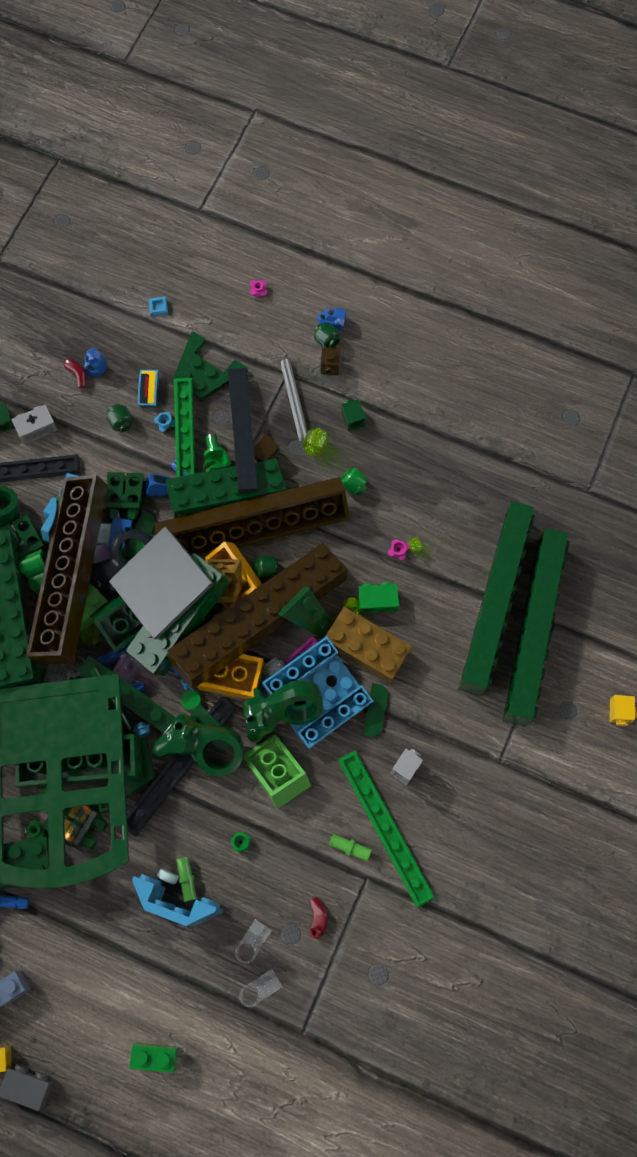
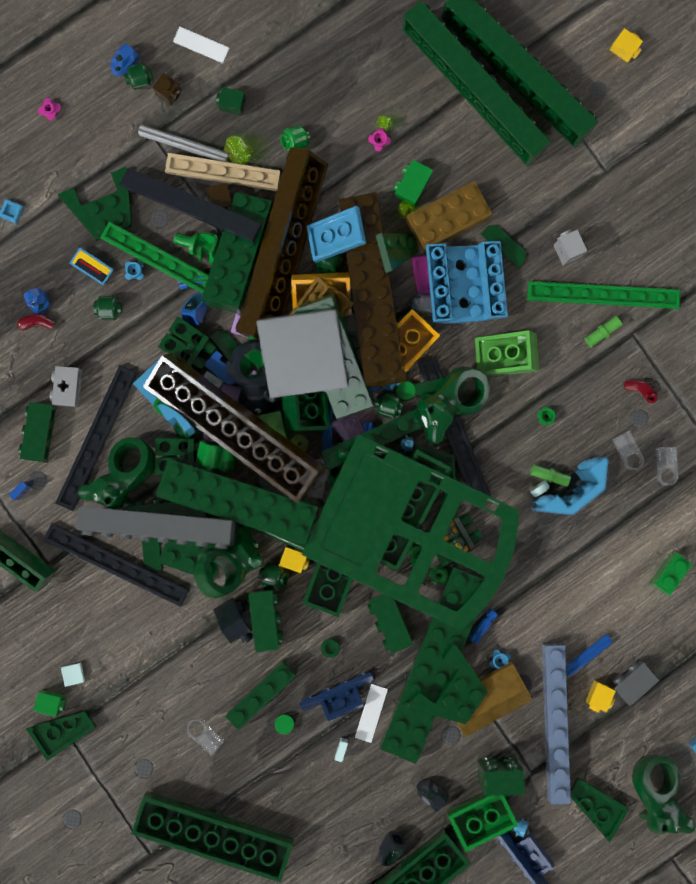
camera: 55 degrees left, 15 degrees up
(30, 1022) = (588, 655): none -> blue axle
(167, 693) = (389, 405): none -> dark green head
(265, 713) = (467, 309): dark green animal -> none
(289, 439) = (222, 172): none -> tan plate
(289, 556) = (336, 234): none -> dark azure tile
(385, 368) = (201, 44): none -> white sticker

